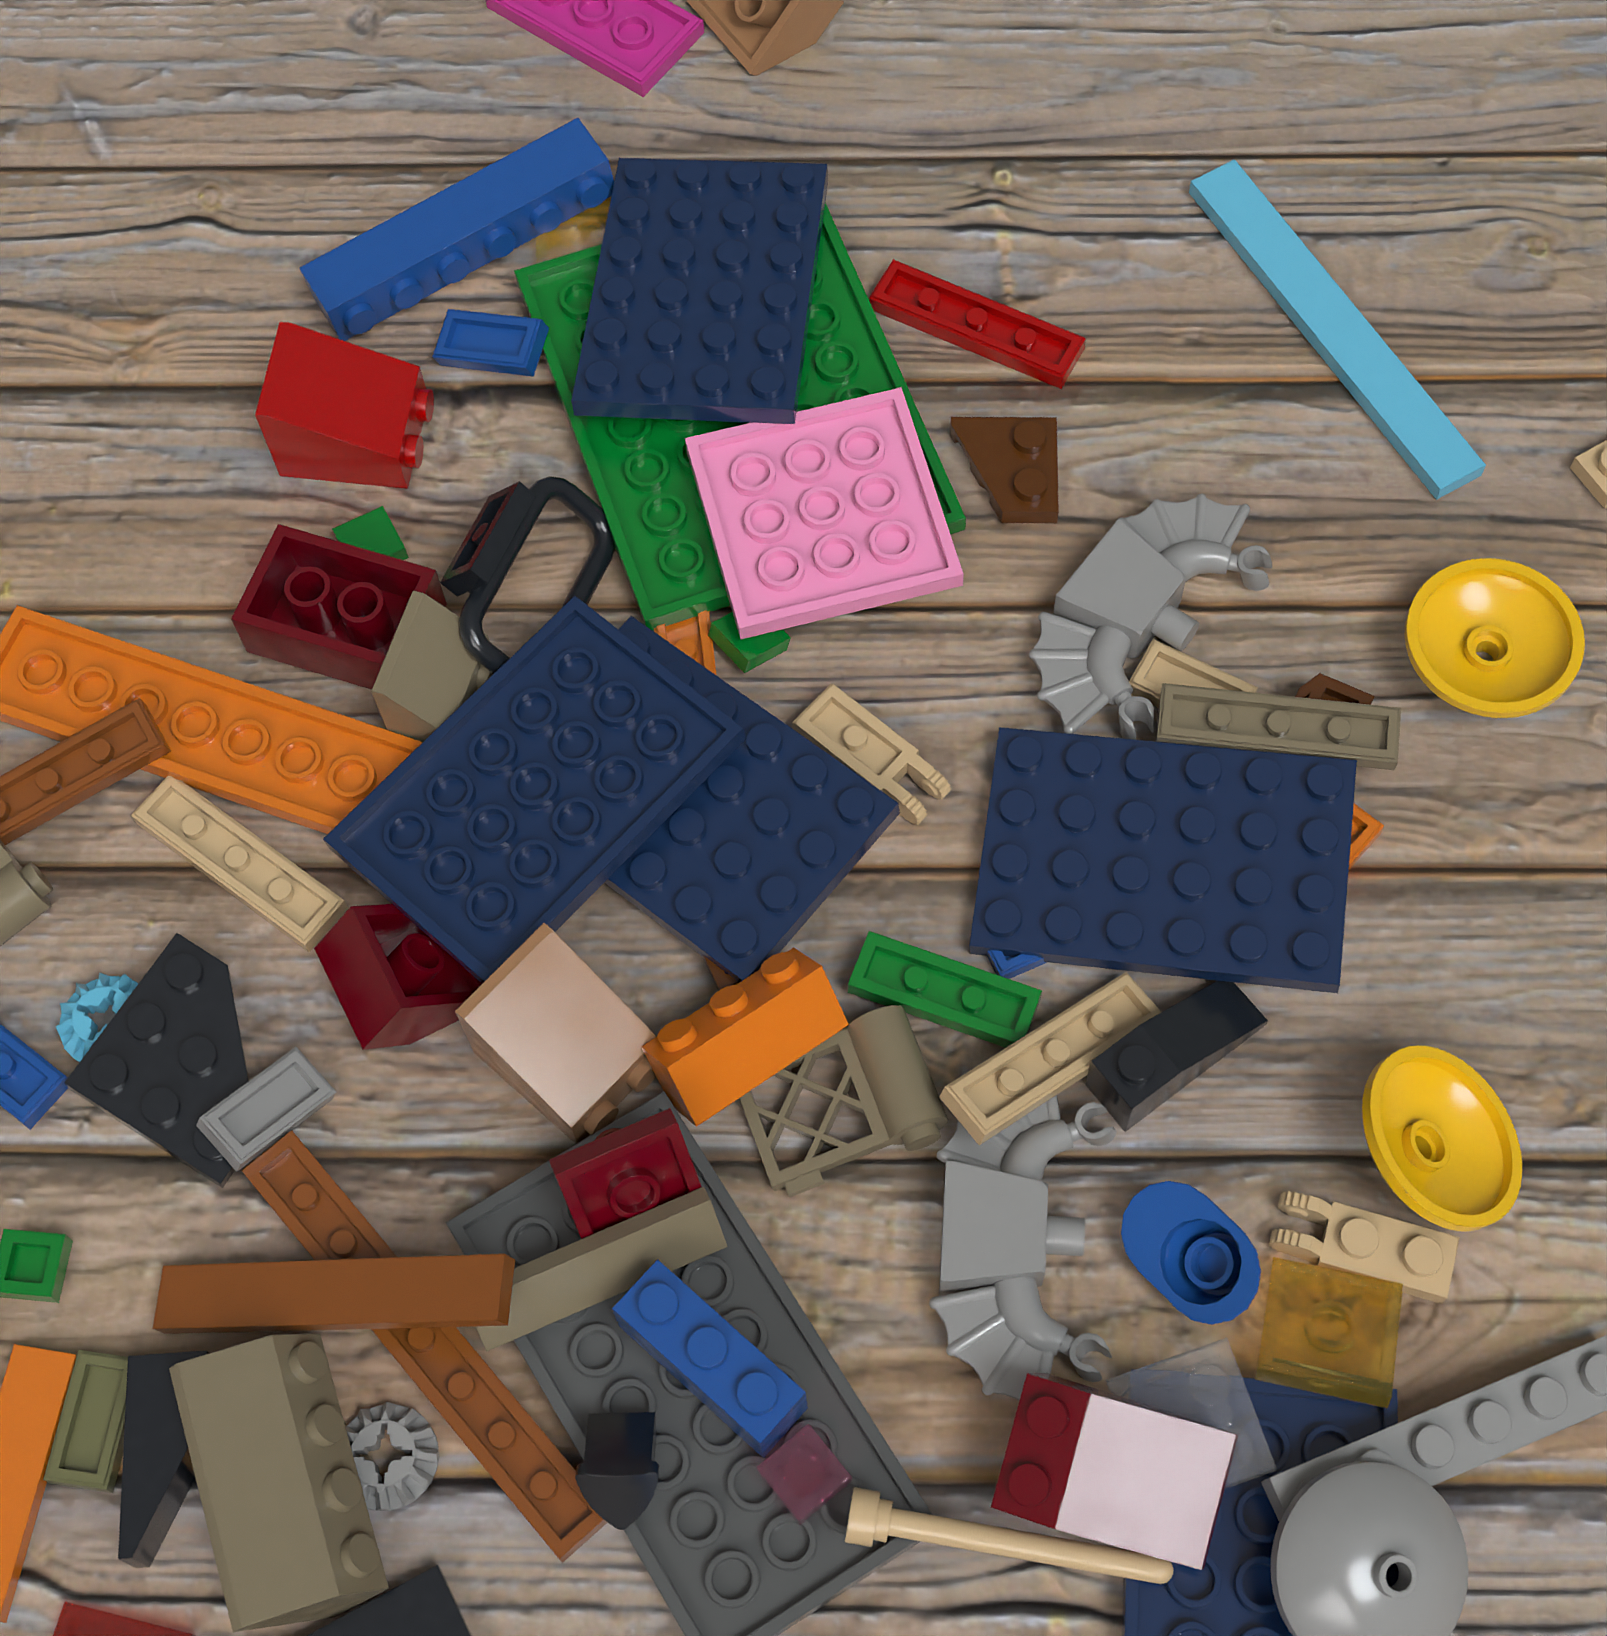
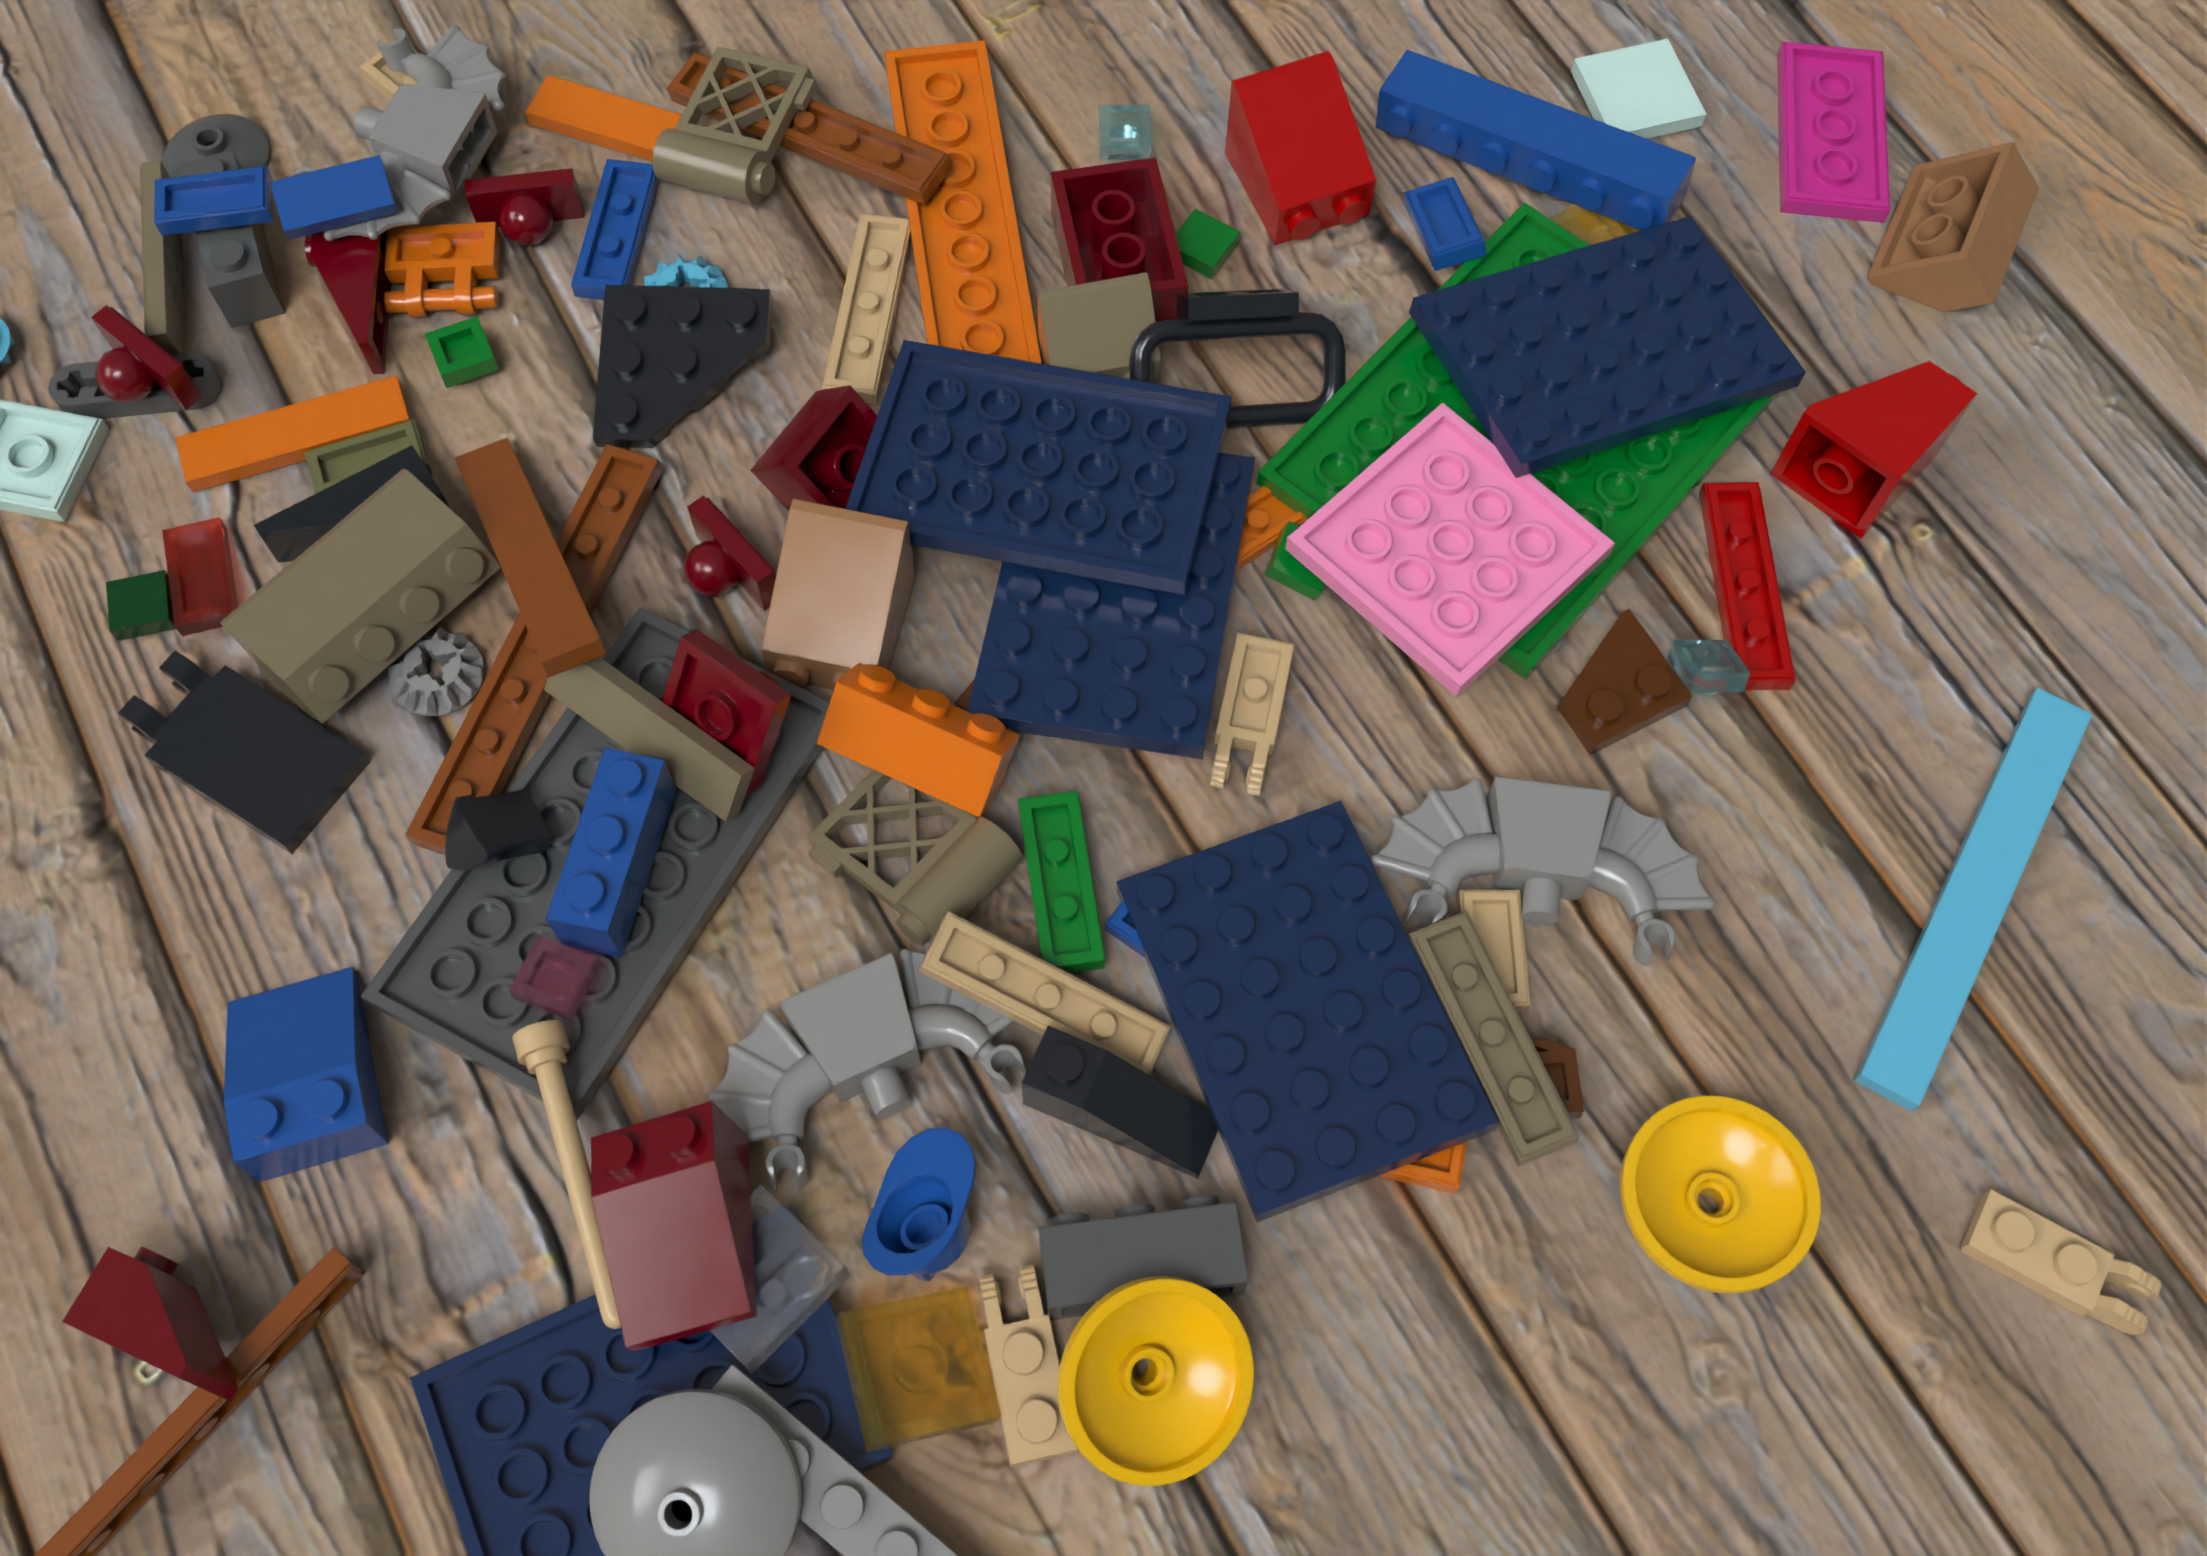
camera: 55 degrees right, 0 degrees up
(206, 542) = (1124, 132): none -> clear light blue plate
(266, 1109) = (666, 432): light grey tile -> none
(440, 1118) = (725, 557): none -> dark red tile
(454, 126) = (1639, 90): none -> light aqua tile
(930, 157) = (1871, 443): none -> red slope
(1039, 390) = (1708, 666): none -> clear light blue plate
(1322, 1099) = (1094, 1257): none -> dark grey brick

